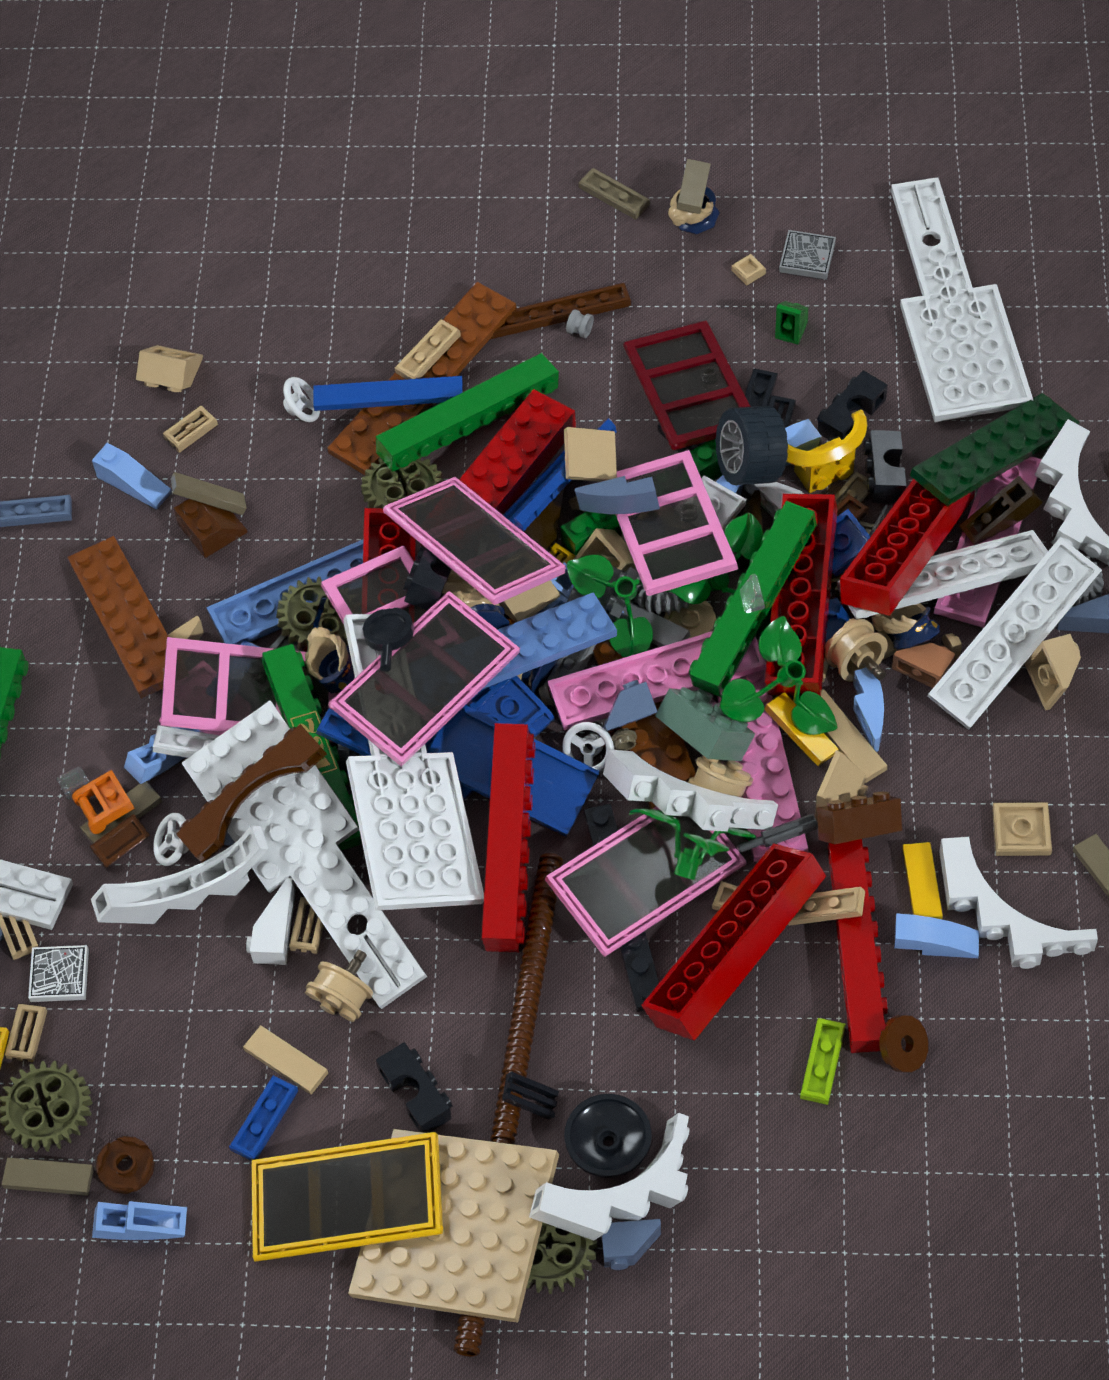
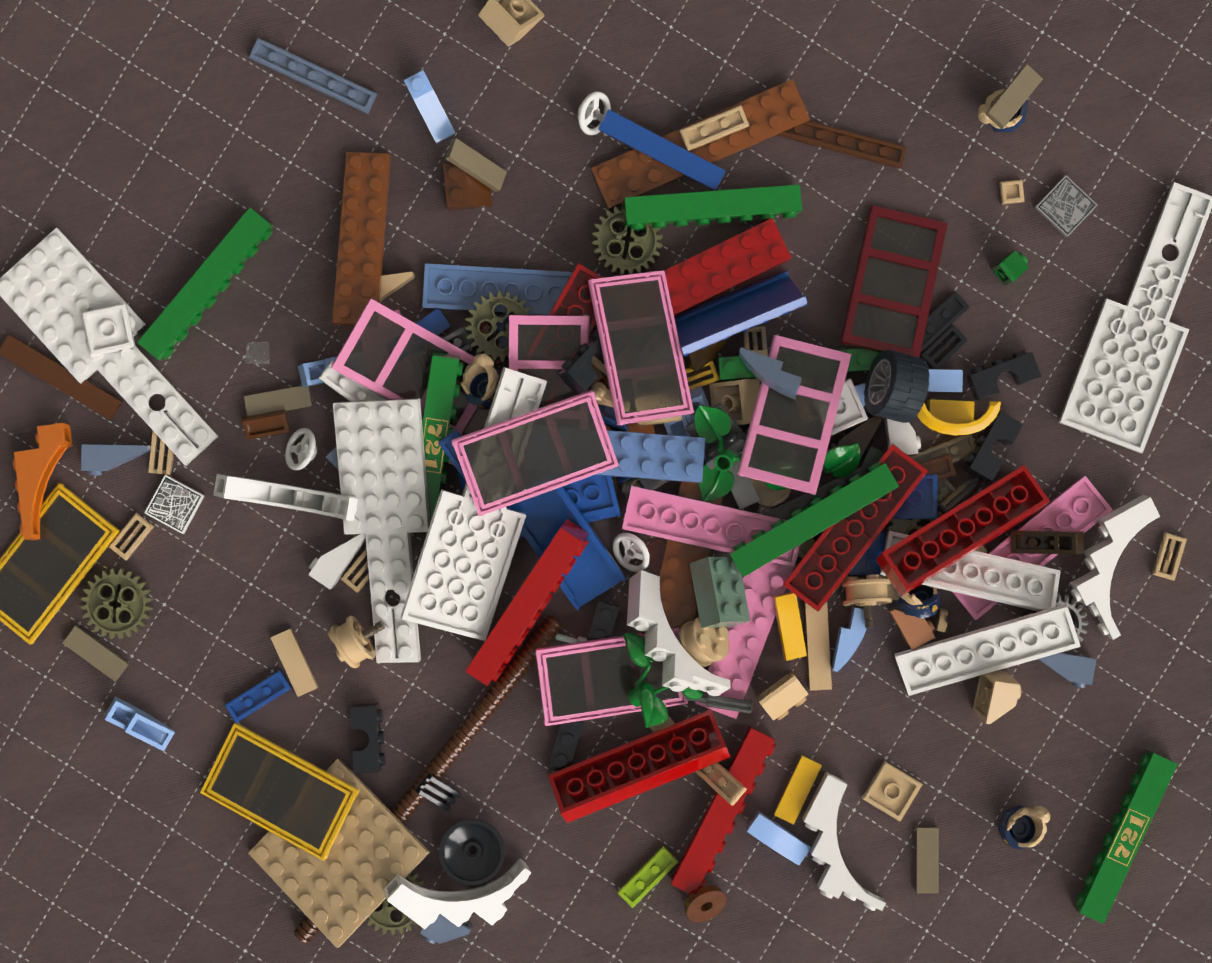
camera: 30 degrees right, 30 degrees up
(111, 797) = (274, 388): orange plate -> none
(131, 1179) = (163, 671): reddish brown tile -> none
(193, 430) = (516, 79): tan tile -> none
(208, 829) = (409, 460): reddish brown arch -> none
(386, 632) = (527, 403): black piece -> none
(579, 323) = (848, 168): light grey wheel -> none
(590, 454) = (771, 322): tan tile -> none
(614, 193) = (954, 50): dark tan tile -> none
(624, 739) = (658, 563): dark tan plate -> none
(630, 705) = (673, 548): sand blue slope -> none
(752, 595) = (809, 527): clear slope -> none
(782, 645) = (803, 620): green plant -> none
(859, 818) = (780, 729): reddish brown brick -> none
(992, 449) = (1079, 487): dark green plate -> none

